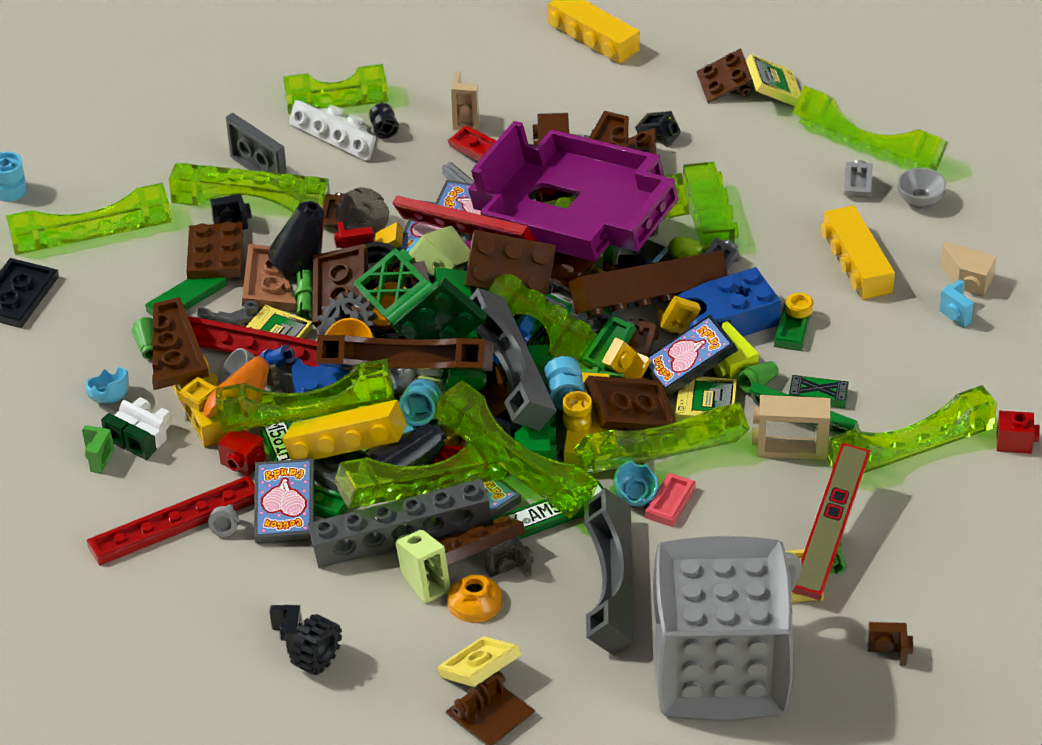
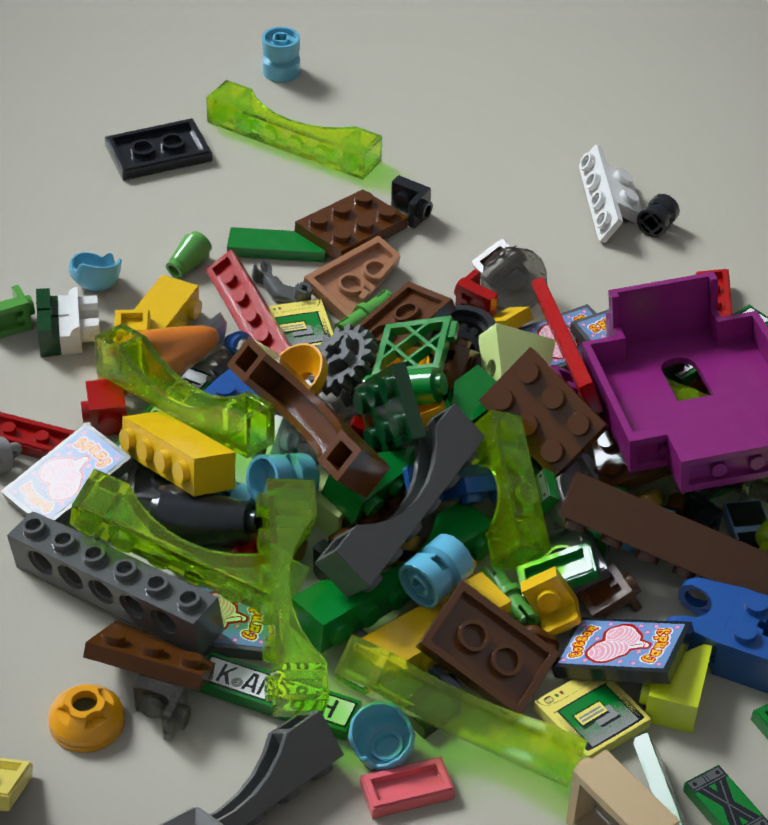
camera: 45 degrees right, 0 degrees up
(175, 346) = (173, 270): reddish brown wing -> none
(198, 183) = (479, 216): clear neon green arch -> none
(253, 147) = (496, 164): dark grey tile -> none
(299, 239) = (412, 257): black cone -> none
(364, 87) = (683, 176): clear neon green arch -> none
(423, 555) = (65, 635): yellowish green torso -> none
(464, 104) = (744, 245): tan panel -> none
(577, 411) = (411, 609): yellow wheel -> none
(678, 315) = (672, 598): yellow bracket -> none
(759, 373) = (678, 734): bright green cone -> none

